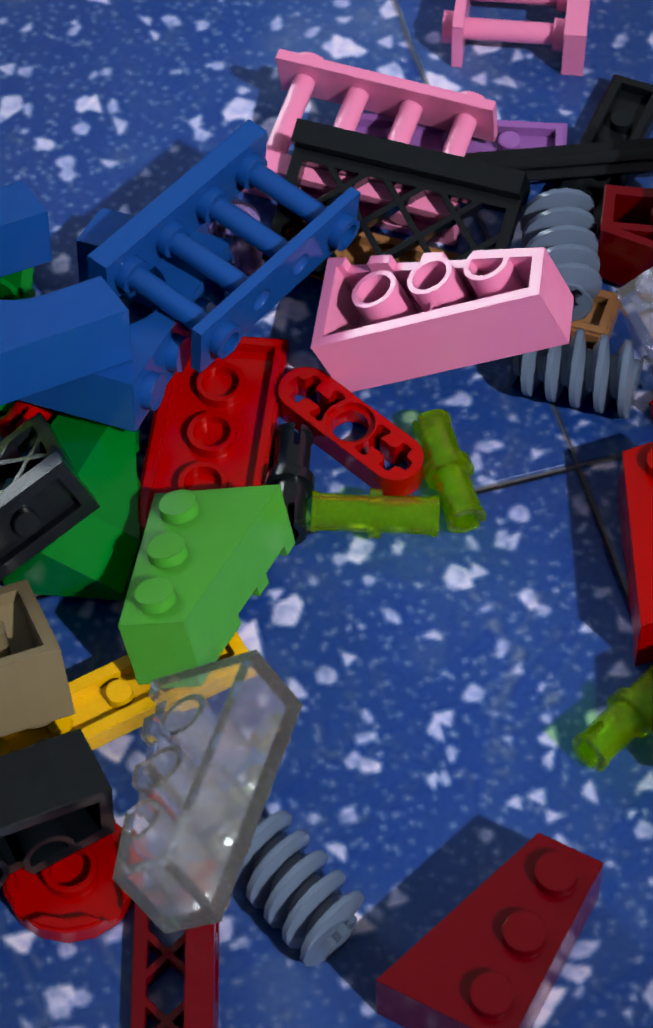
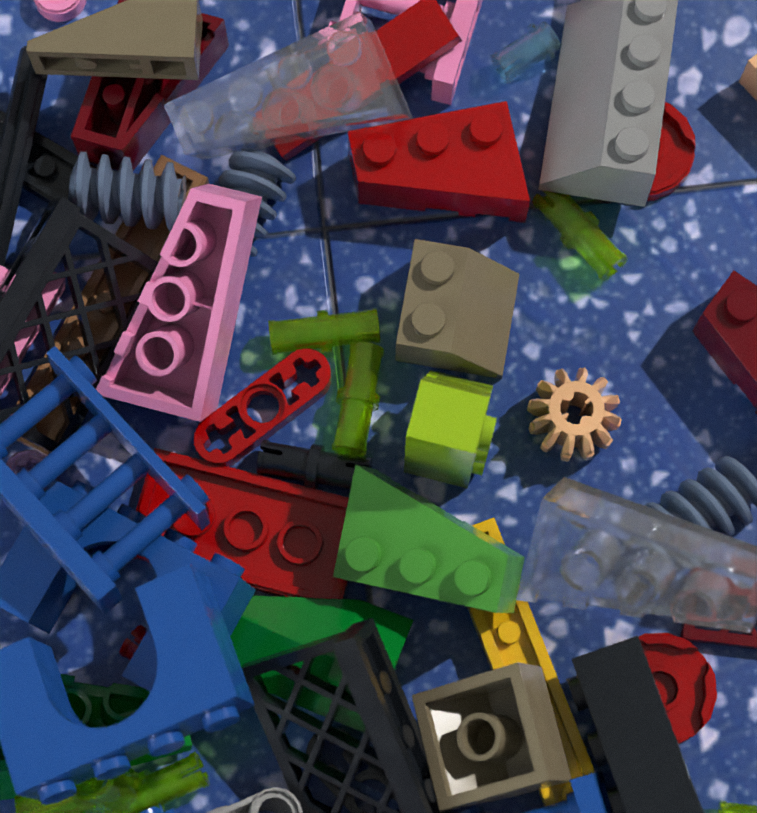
camera: 85 degrees left, 20 degrees up
(346, 575) = (449, 429): none -> lime wedge
(393, 753) = (591, 428): none -> light nougat gear
(499, 591) = (456, 310): none -> dark tan slope

